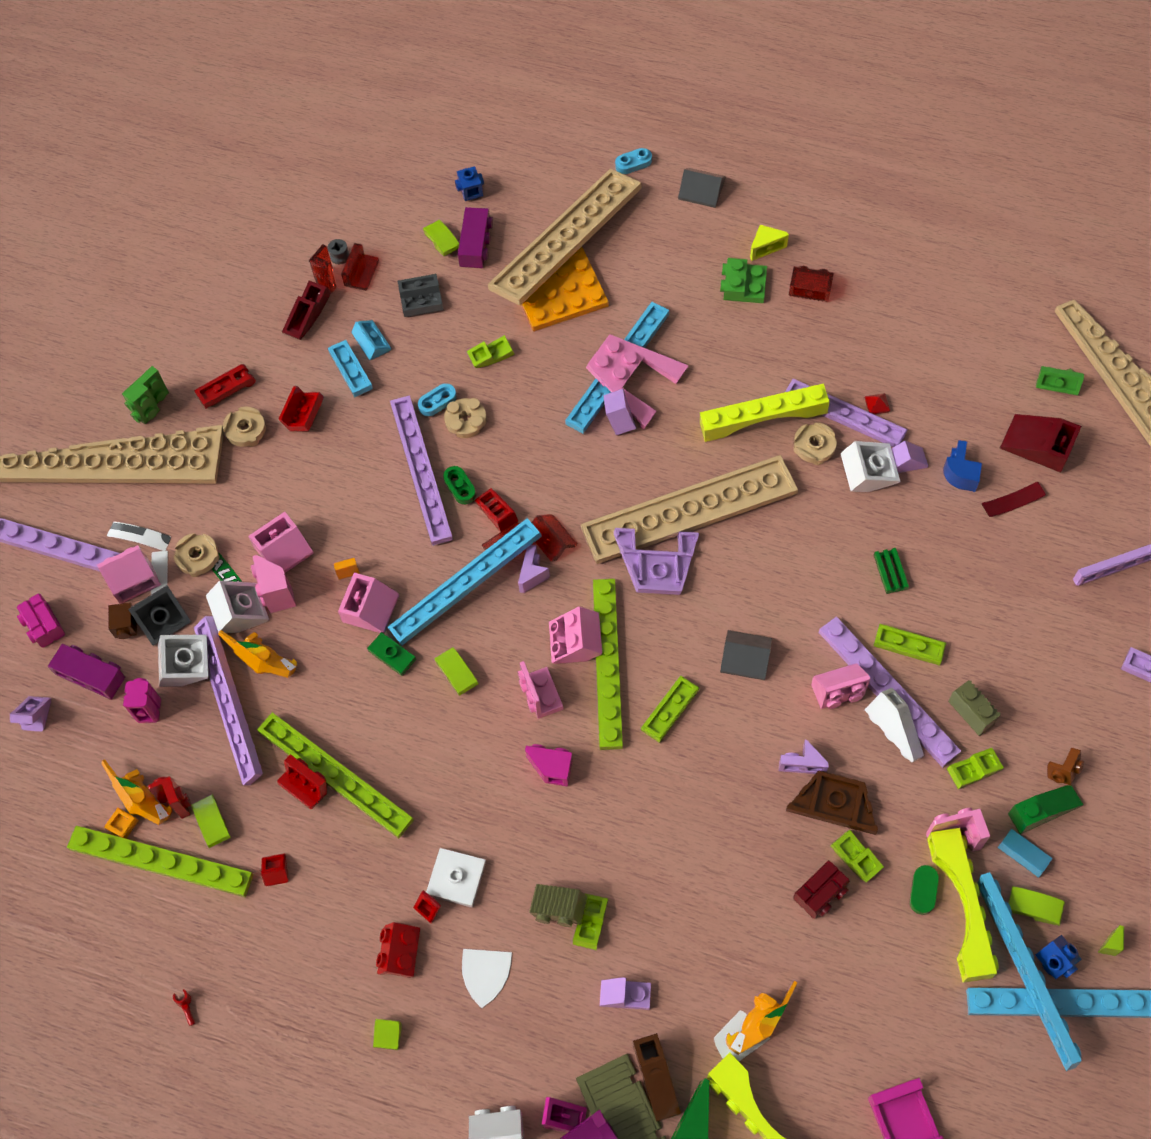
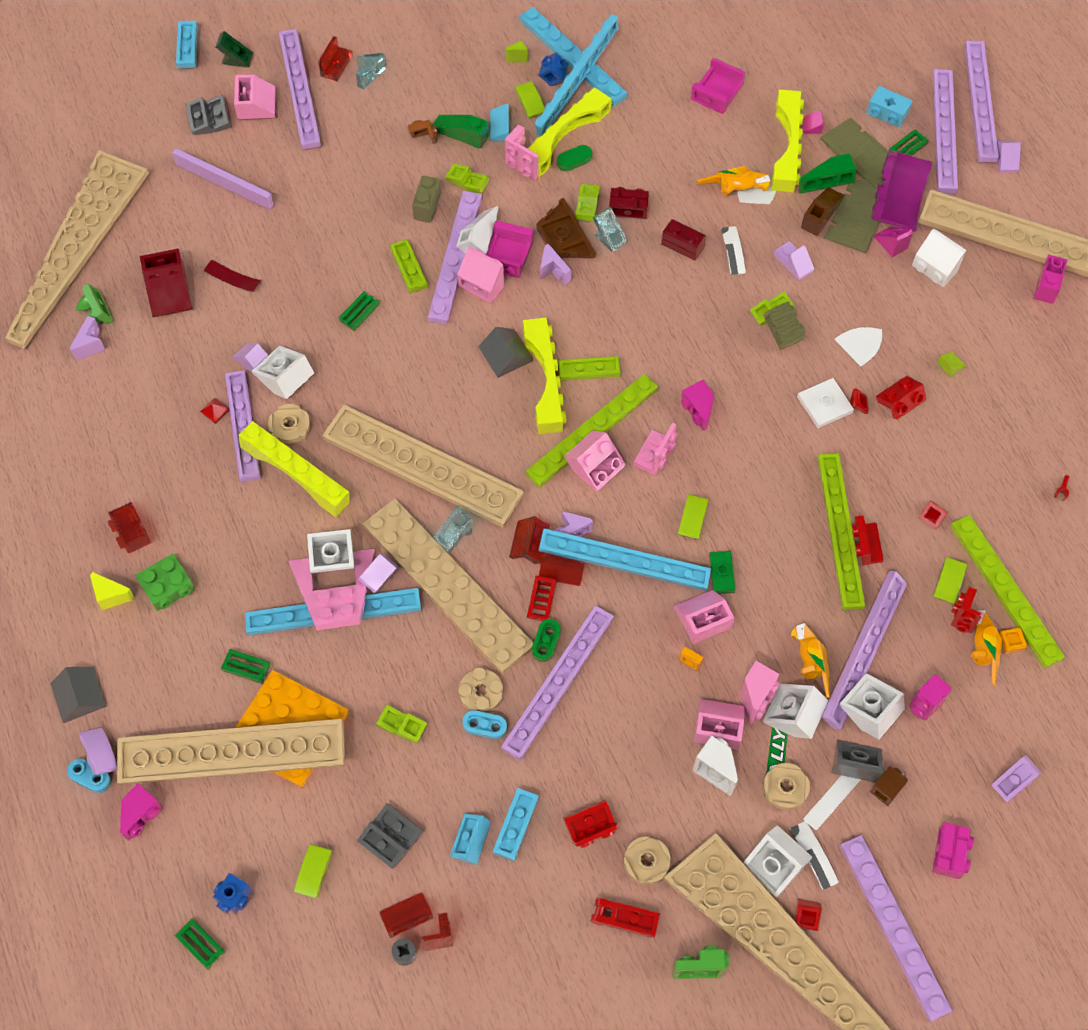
camera: 135 degrees left, 0 degrees up
(87, 670) = (949, 772): magenta brick -> none
(109, 497) = (808, 914): none -> red slope
(129, 574) = (854, 812): bright pink slope -> none
(157, 504) = (777, 861): none -> white slope
(249, 509) = (717, 765): none -> white slope
(306, 310) = (490, 919): dark red slope -> none
(460, 158) = (213, 957): none -> green tile
(474, 237) = (291, 838): magenta brick -> none
(570, 456) = (448, 586): none -> tan plate
(580, 170) = (136, 811): none -> dark pink slope
(608, 488) = (454, 528): none -> clear light blue slope
(630, 293) = (262, 672): none -> green tile
(644, 170) = (99, 752): none -> lavender slope
(656, 570) = (491, 444): lavender wing -> none
(662, 386) = (330, 551): none -> white slope
(689, 949) = (734, 250): none -> white sticker
(732, 684) = (548, 410): none -> neon yellow arch
(734, 902) = (683, 239): none -> dark red brick
(802, 842) = (609, 230): none -> clear light blue slope
(855, 736) = (511, 247): none -> dark pink panel
(961, 472) = (236, 317): blue brick -> none
(1025, 350) = (86, 340): none -> lavender slope

